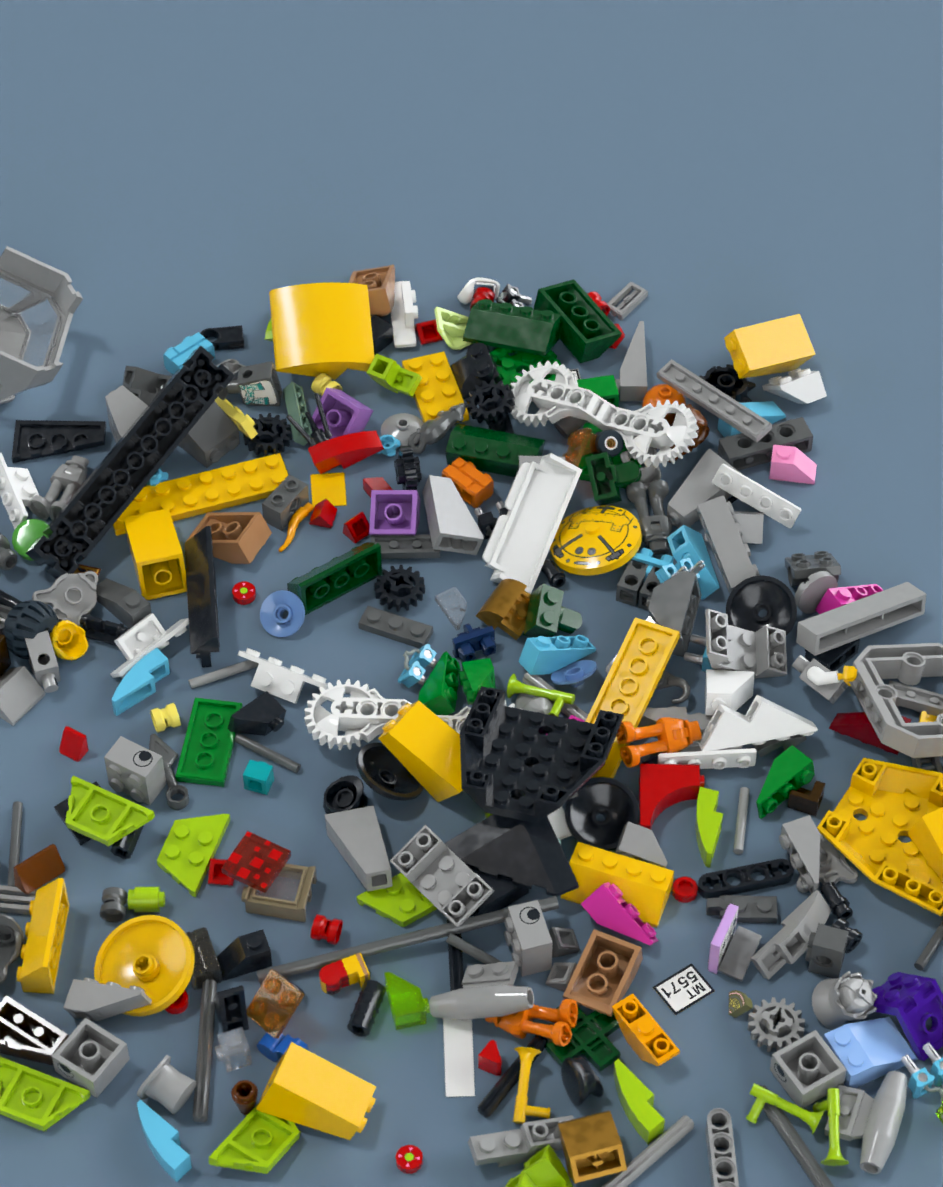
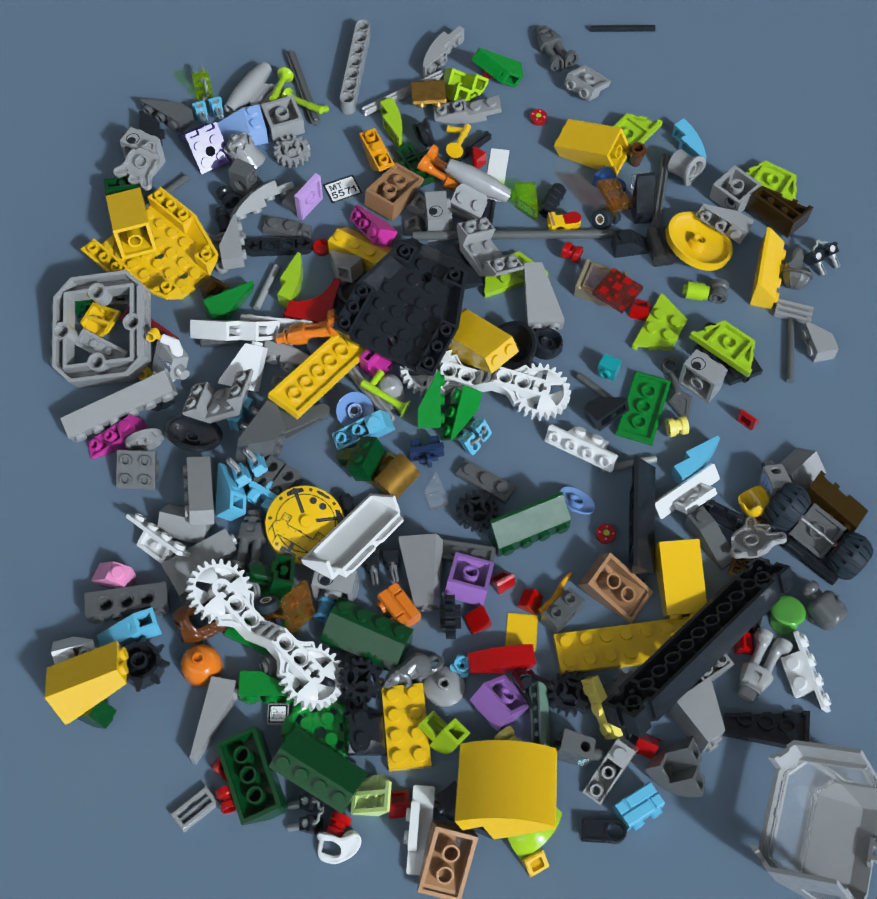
camera: 170 degrees left, 10 degrees up
(38, 869) = (772, 321): reddish brown slope -> none
(714, 400) = (159, 635): light grey tile -> none
(739, 1003) = (311, 167): olive tile -> none

